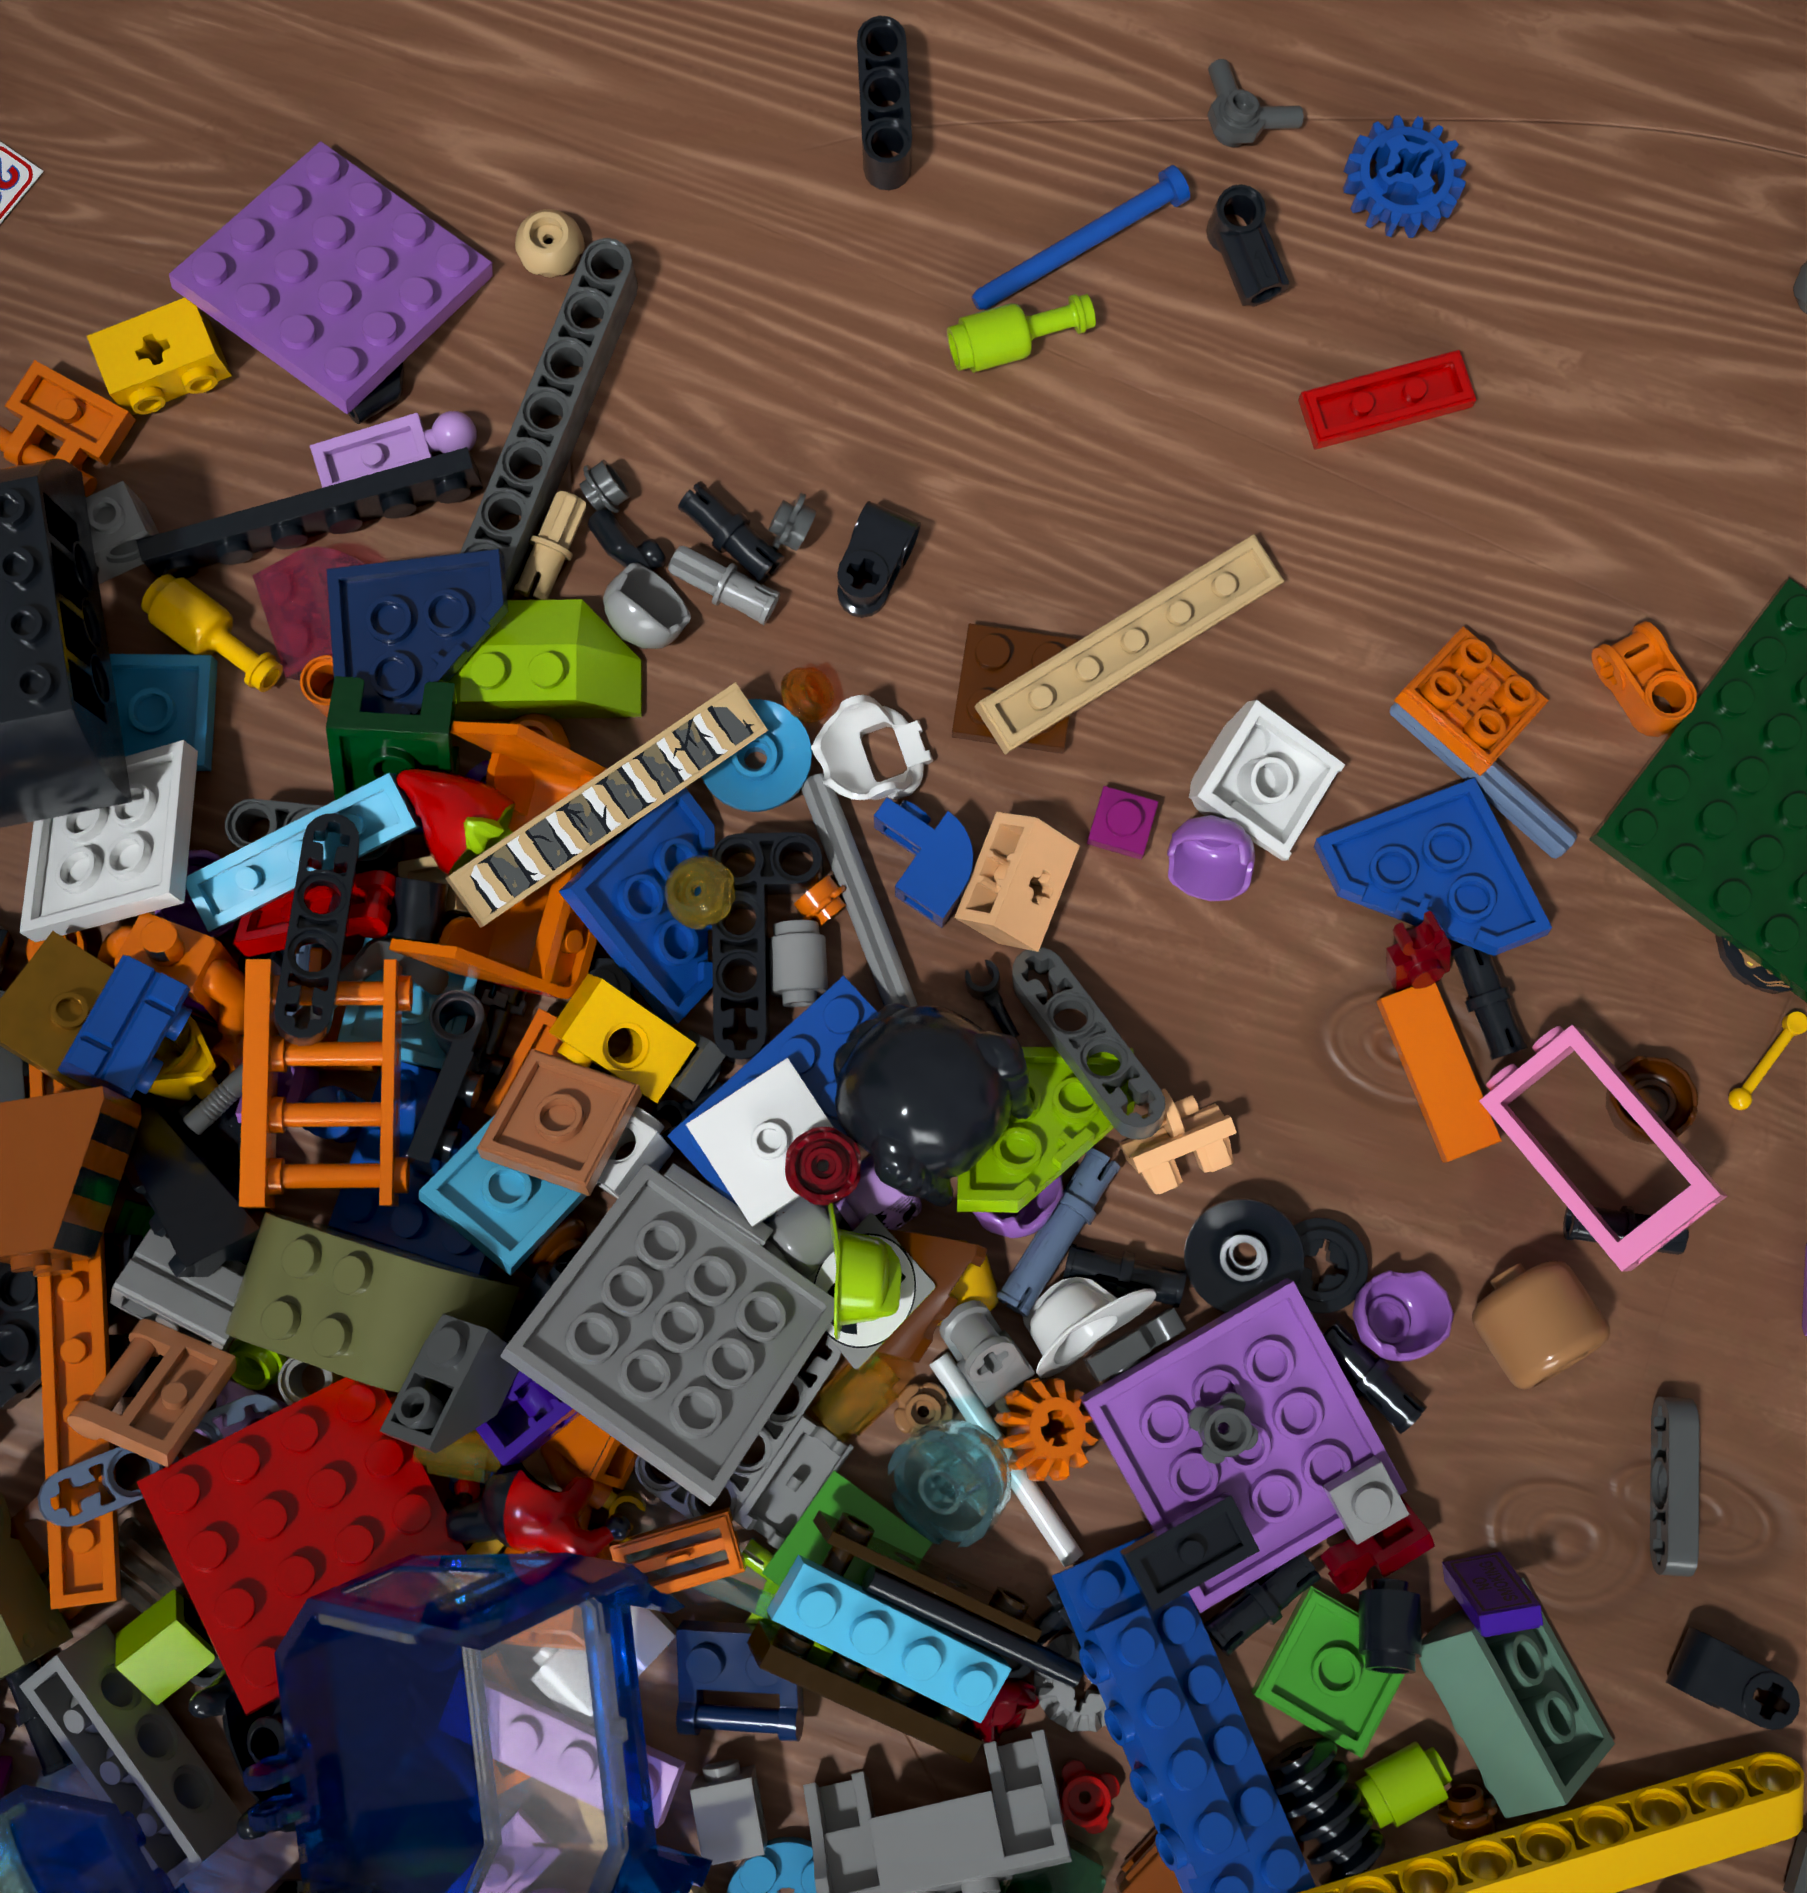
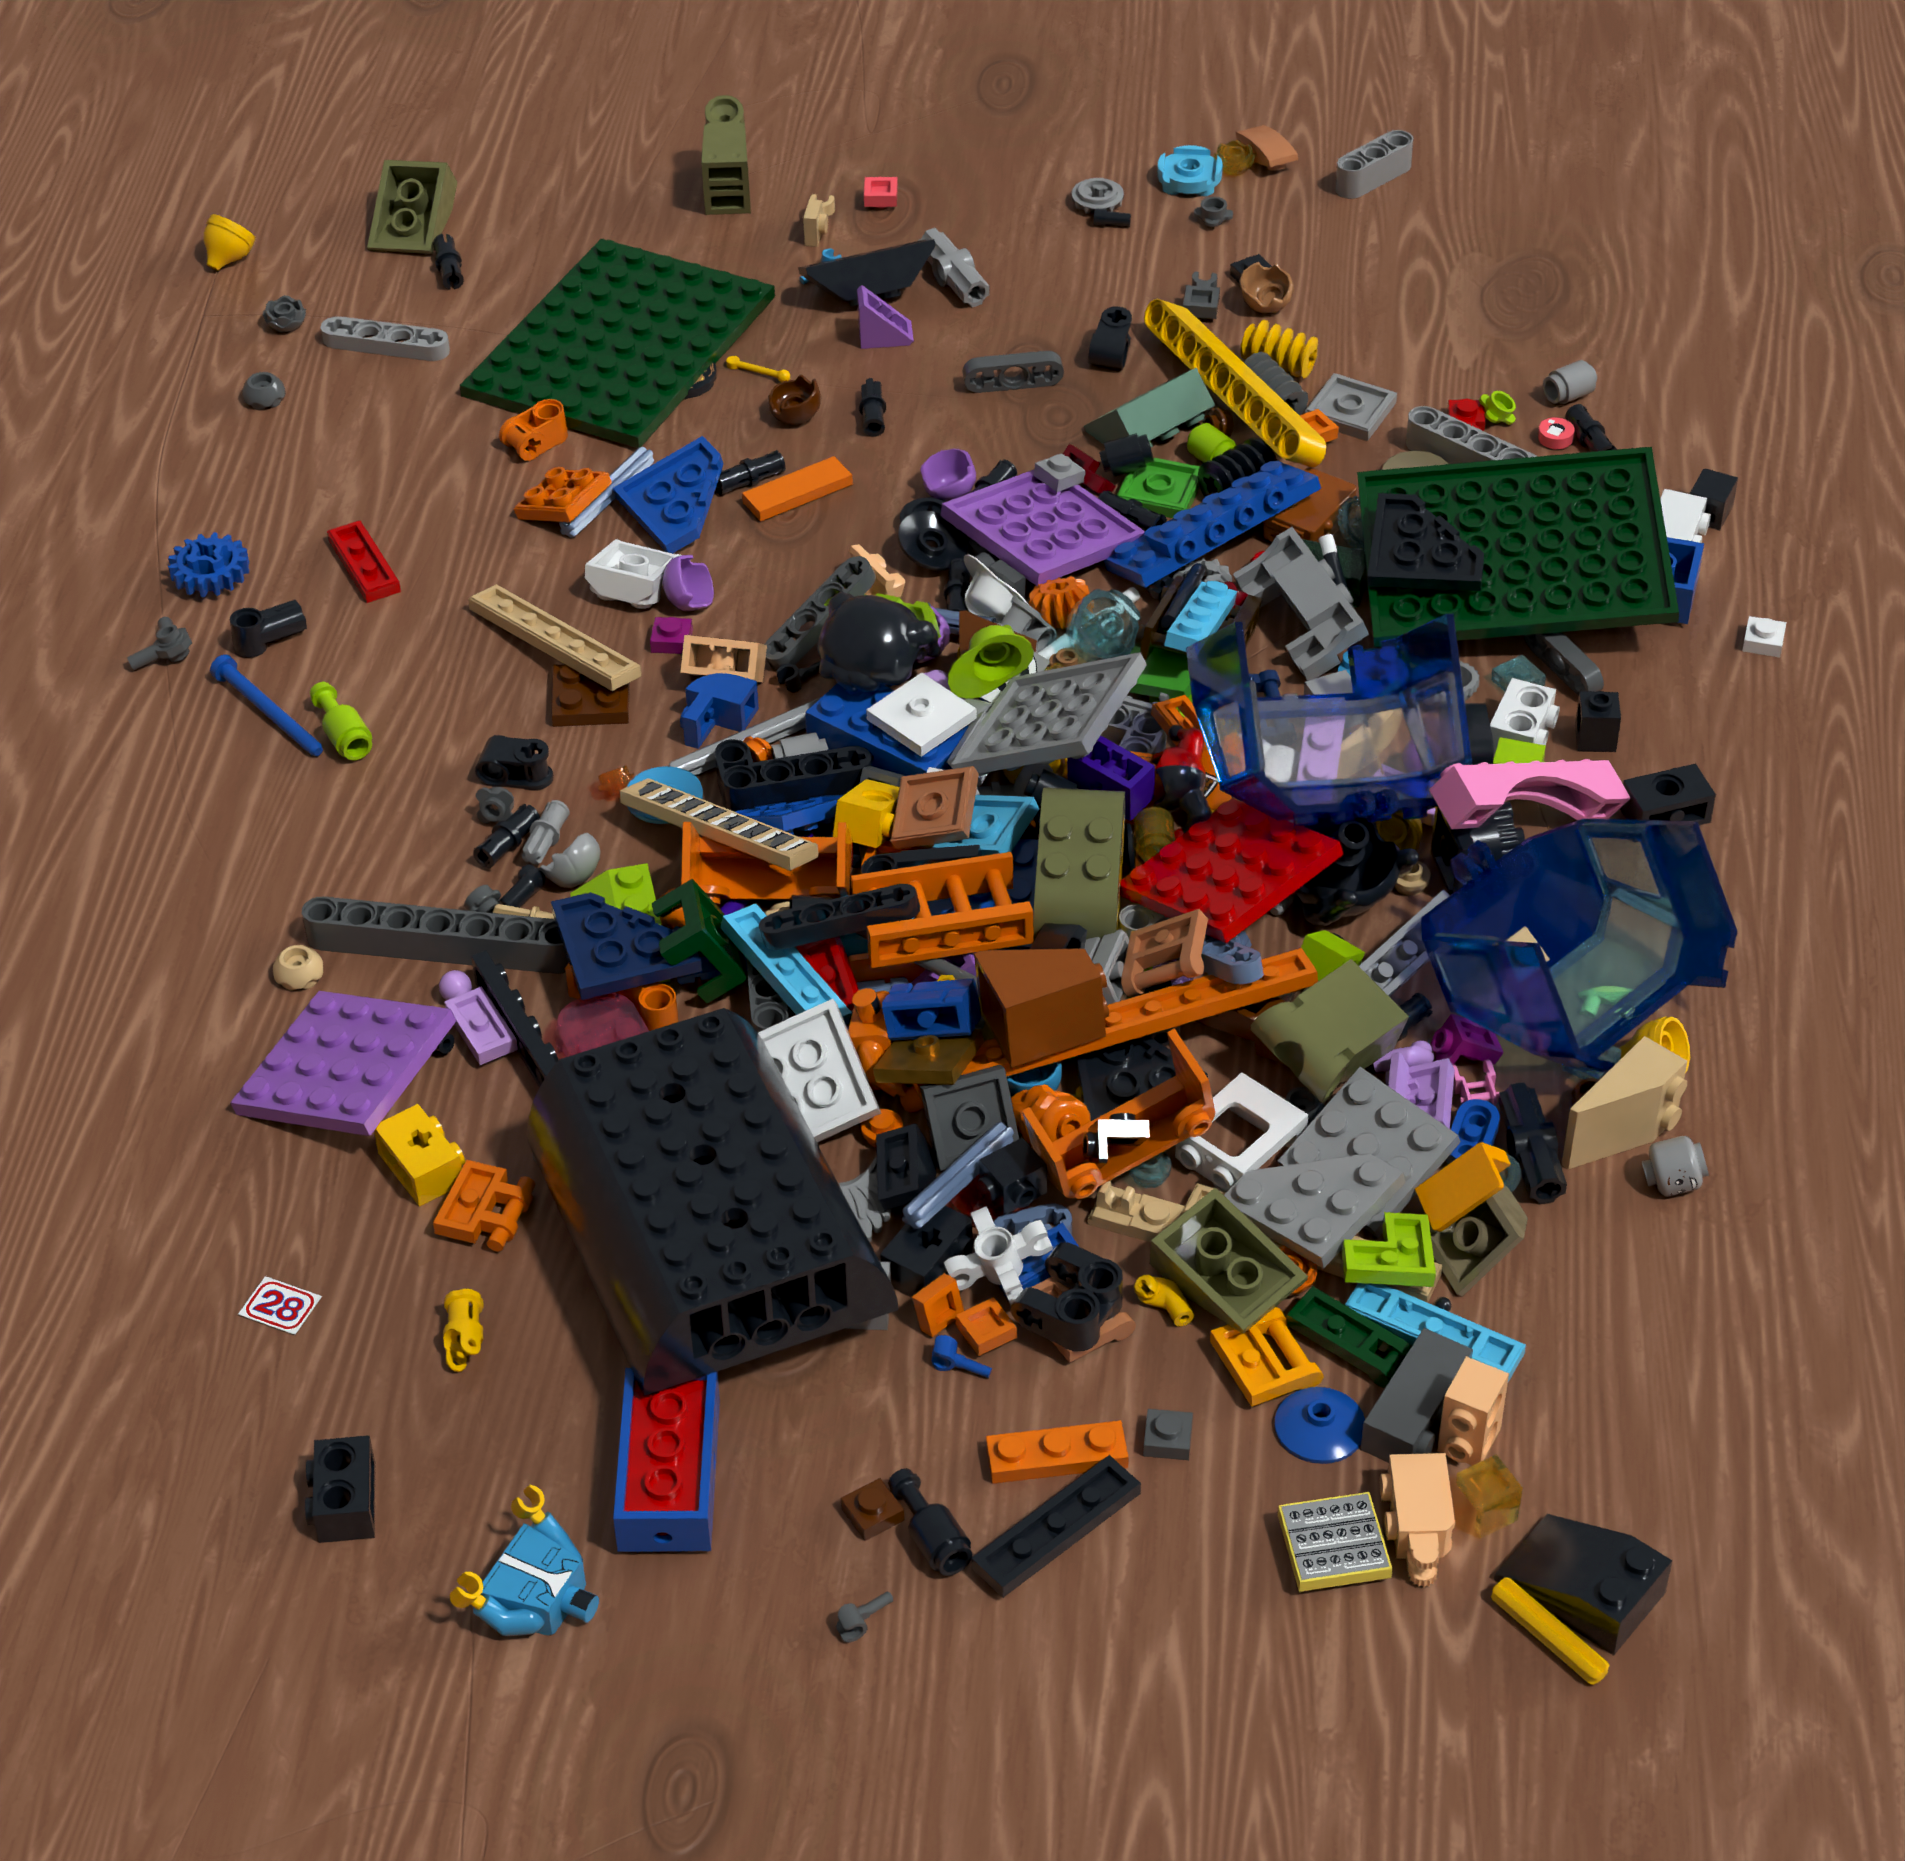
camera: 100 degrees left, 35 degrees down
(456, 815) = (748, 881): red hat -> none
(465, 1366) = (1113, 772): dark grey slope -> none
(715, 896) = (766, 795): clear yellow plate -> none
(828, 1185) = (930, 672): dark red plate -> none
(844, 758) = (672, 733): white helmet -> none
(887, 80) = (175, 807): black beam -> none
(1189, 1551) = (1110, 524): black plate -> none
(1235, 1440) = (1036, 516): dark grey plate -> none
(1419, 955) = (731, 491): dark red plate -> none
(1492, 1594) = (1094, 416): dark purple tile -> none
(1539, 1322) = (937, 420): medium nougat head -> none
(1665, 1223) = (861, 359): bright pink window -> none

